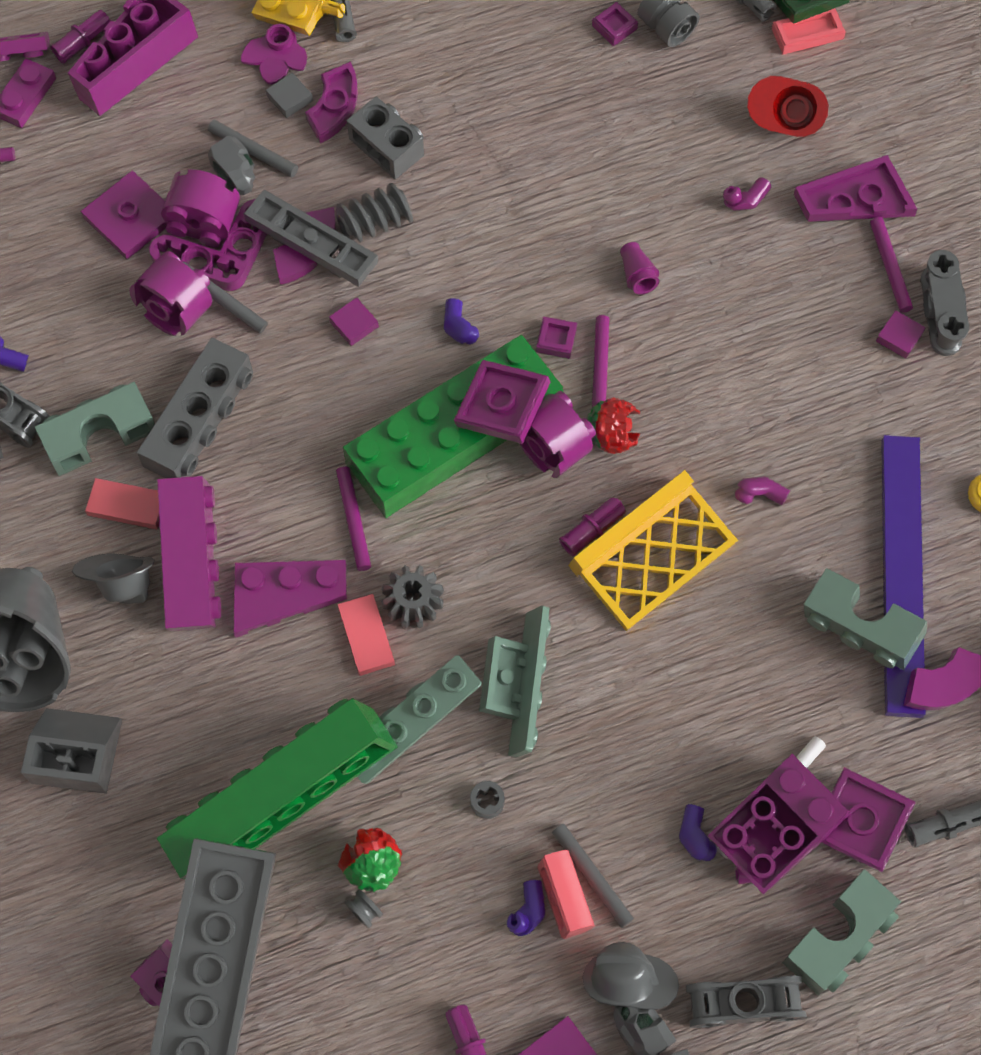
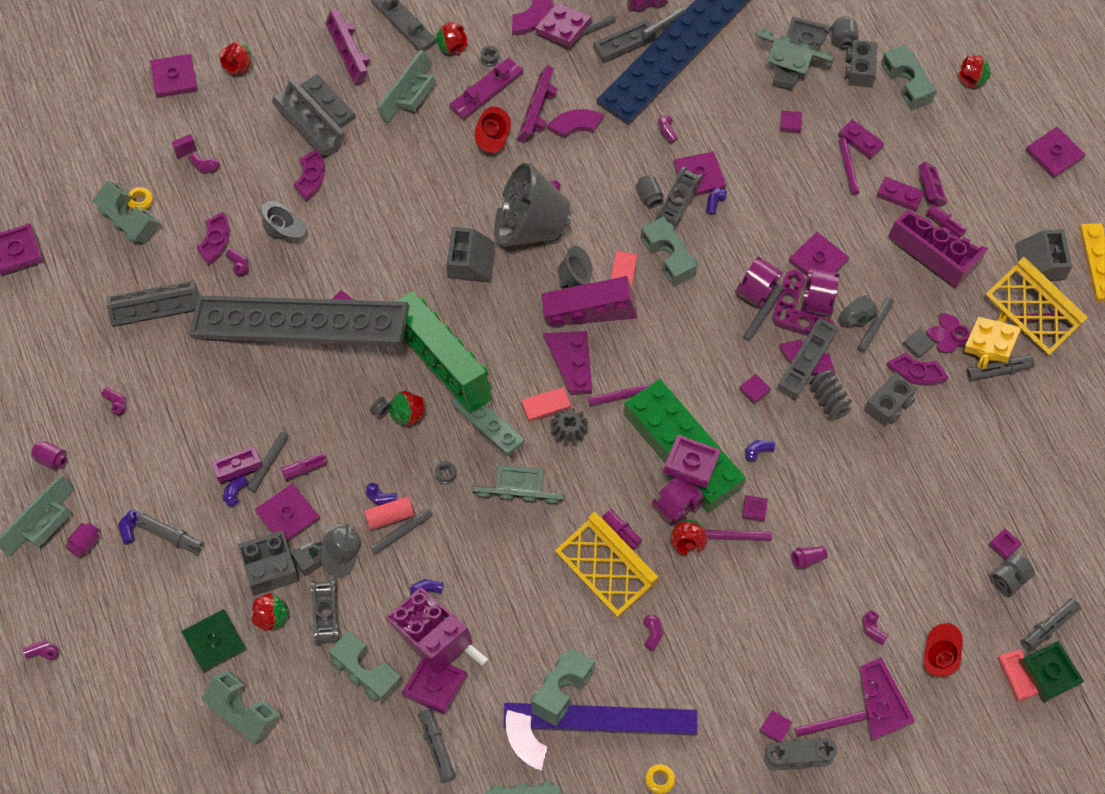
camera: 85 degrees right, 5 degrees down
(215, 363) = (678, 293): dark grey brick -> none

